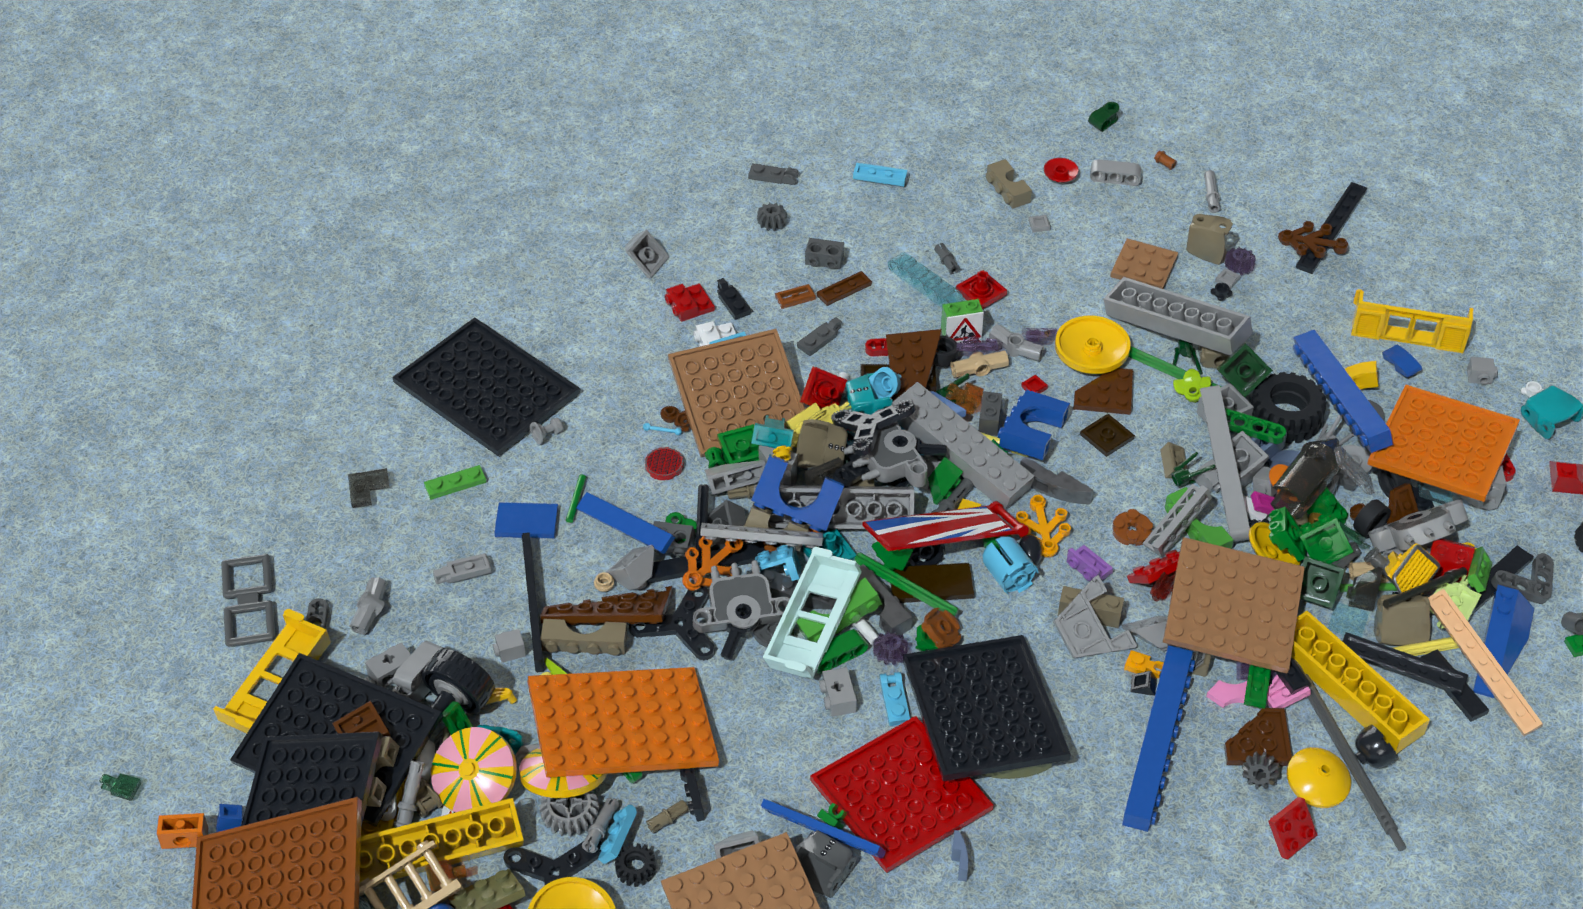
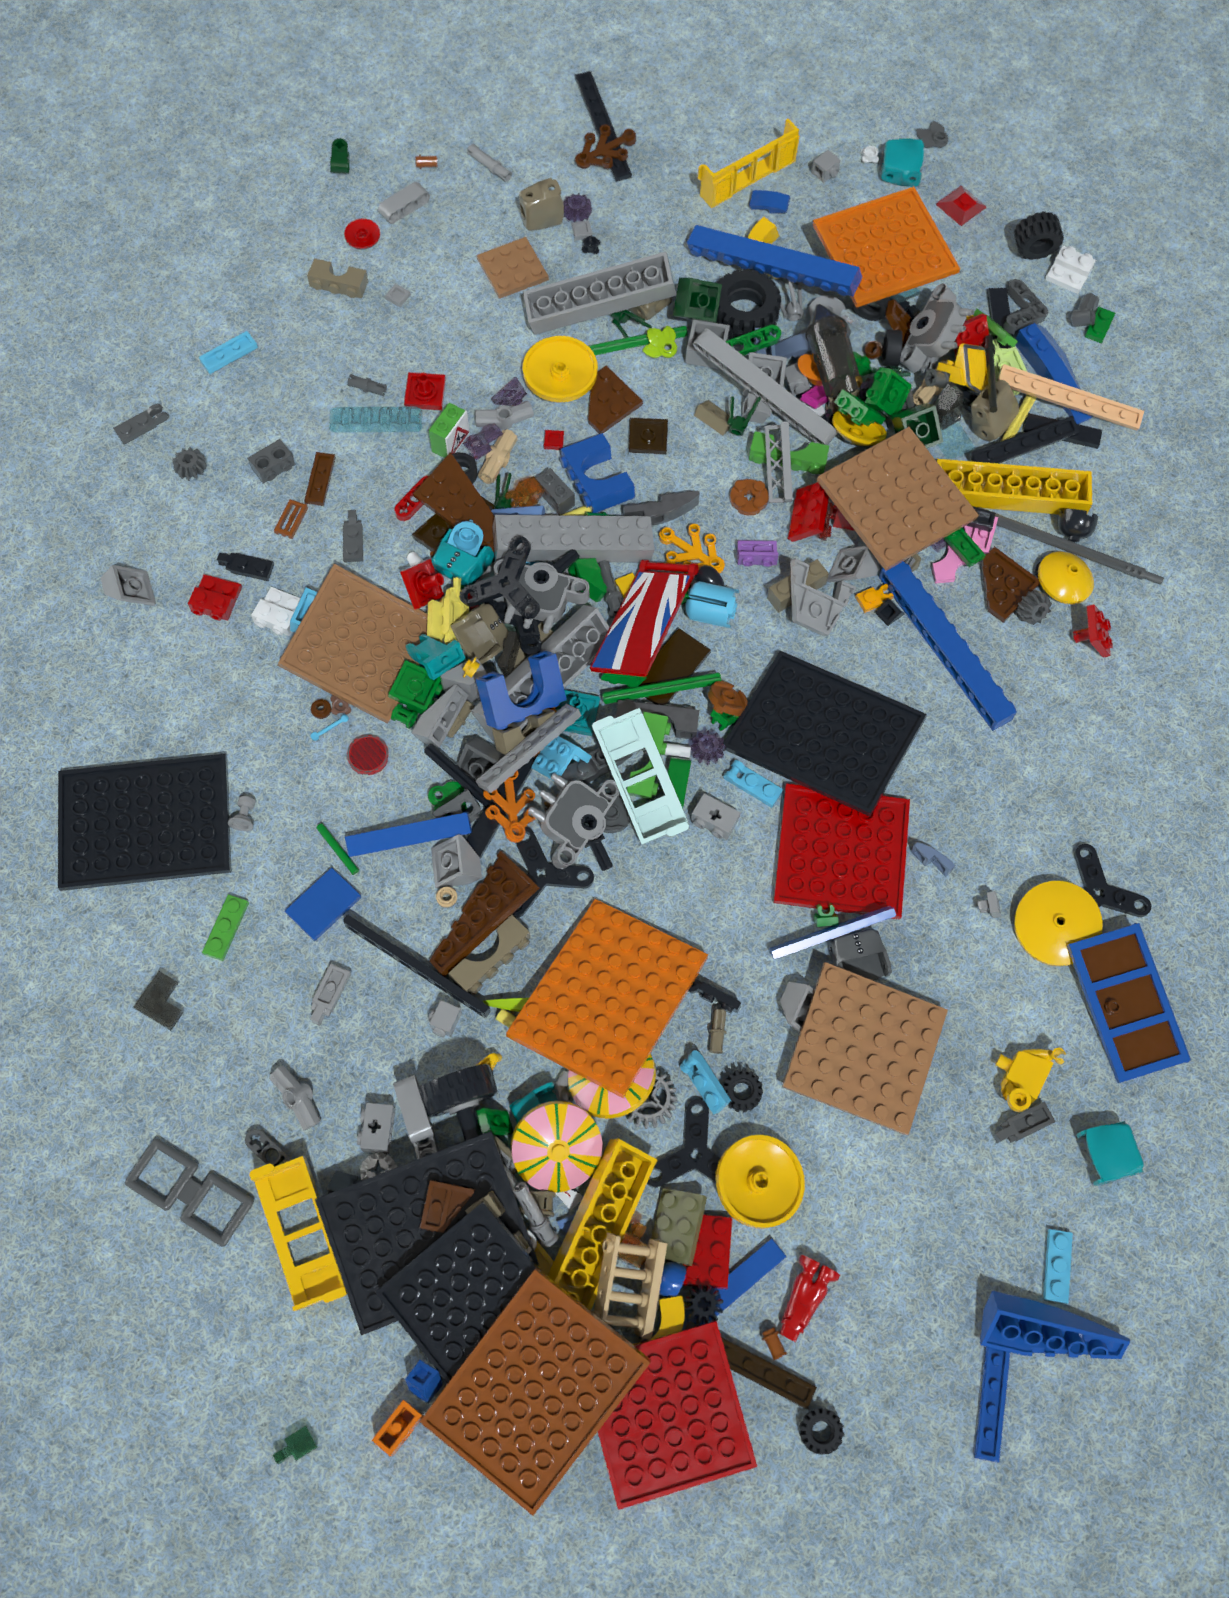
camera: 50 degrees left, 20 degrees up
(597, 830) = (691, 1095): light grey pin -> none

